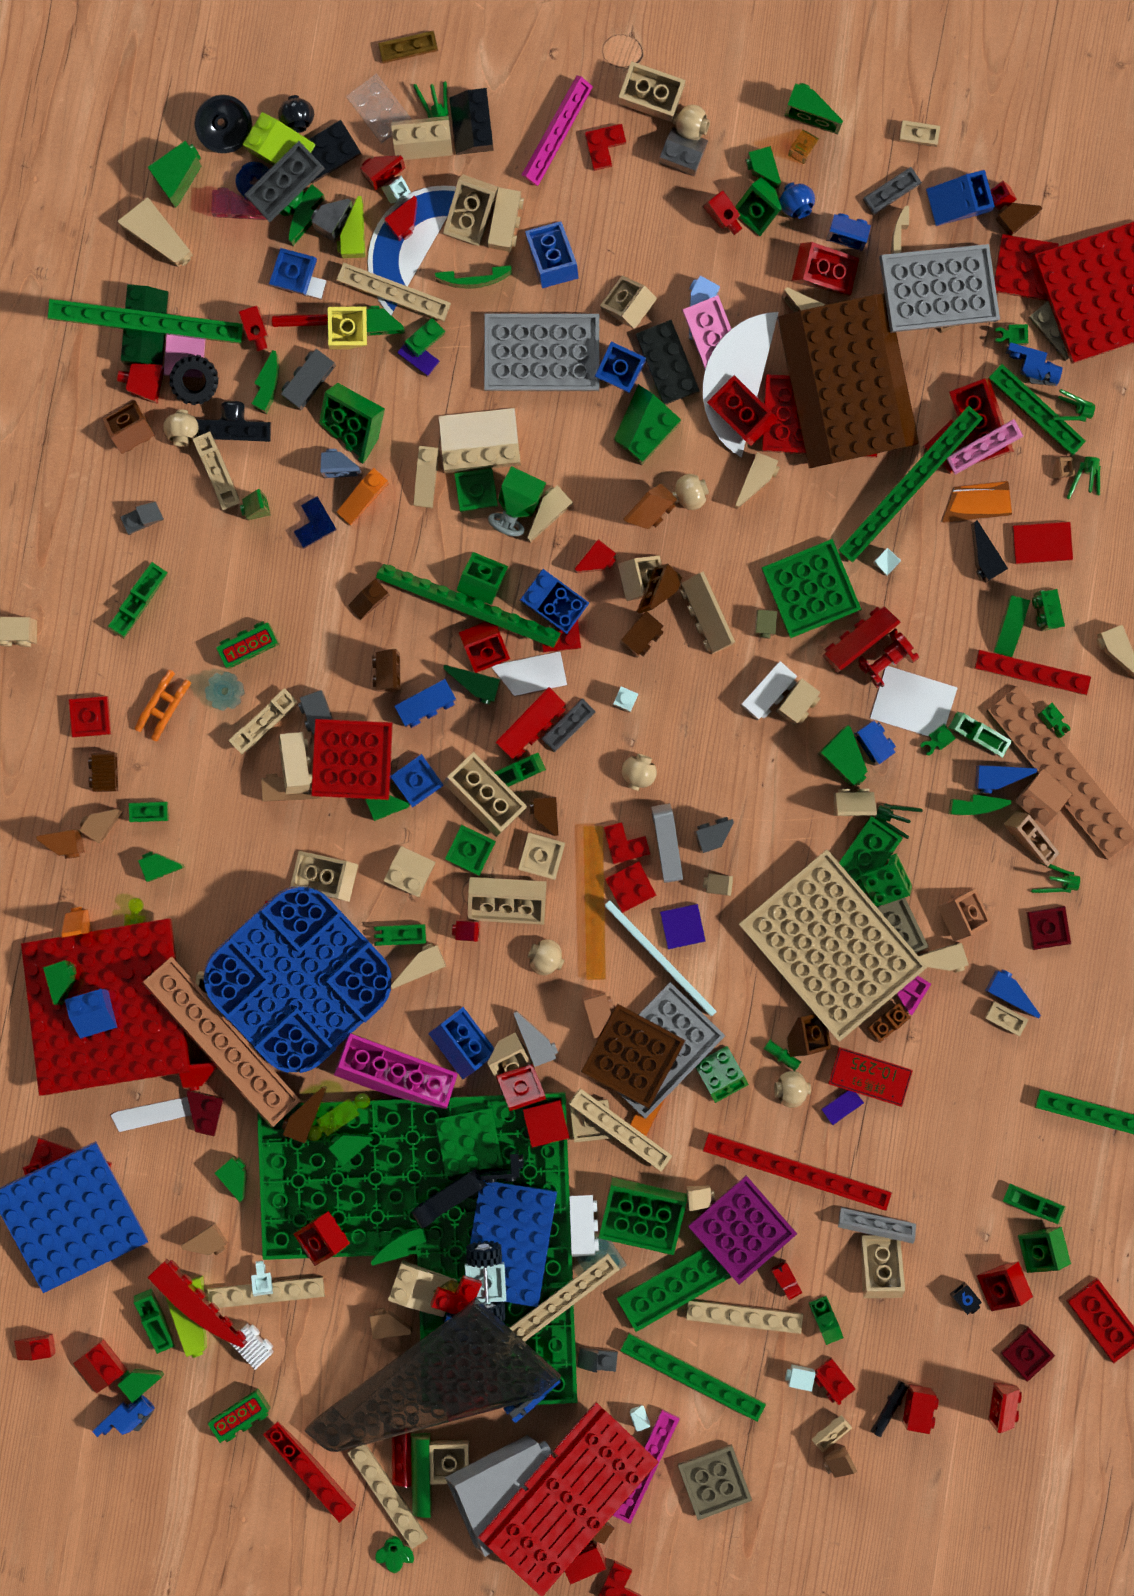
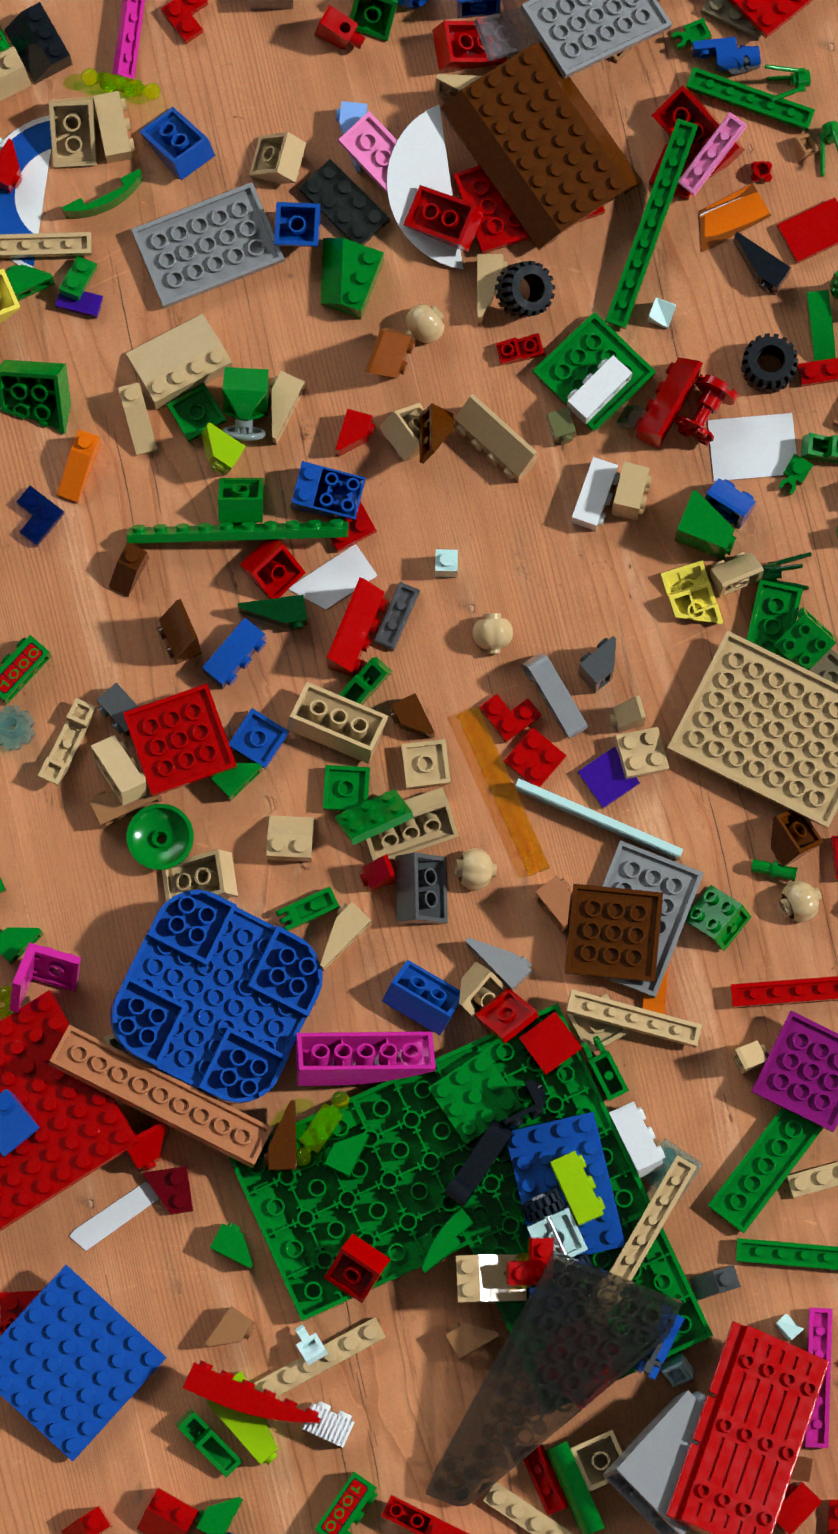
camera: 20 degrees left, 10 degrees down
(175, 897) = (39, 965): none -> dark pink bracket
(292, 826) = (153, 823): none -> green dish
(337, 465) = (41, 443): sand blue slope -> none
(481, 532) = (220, 449): none -> lime slope
(481, 886) = (374, 817): none -> green plate
(496, 956) = (421, 889): none -> dark grey slope
(518, 1250) = (577, 1188): none -> lime brick
(531, 190) = (113, 83): none -> clear neon green plate
(540, 1416) = (677, 1369): none -> light aqua slope
(580, 1162) = (605, 1071): none -> green hinge
(642, 634) = (435, 488): reddish brown brick -> none
(643, 1216) = (698, 1103): green slope -> none
(717, 918) = (641, 752): none -> tan plate
(759, 544) = (520, 349): none -> red slope
(795, 504) = (539, 284): none -> black tyre
(808, 606) = (598, 389): none -> white brick
(812, 804) = (691, 593): none -> light yellow slope
(824, 638) = (630, 416): none -> clear smoke tile
(858, 272) = (505, 33): none -> clear plate
(970, 631) = (776, 347): none -> black tyre
(1025, 472) = (761, 165): none -> red plate

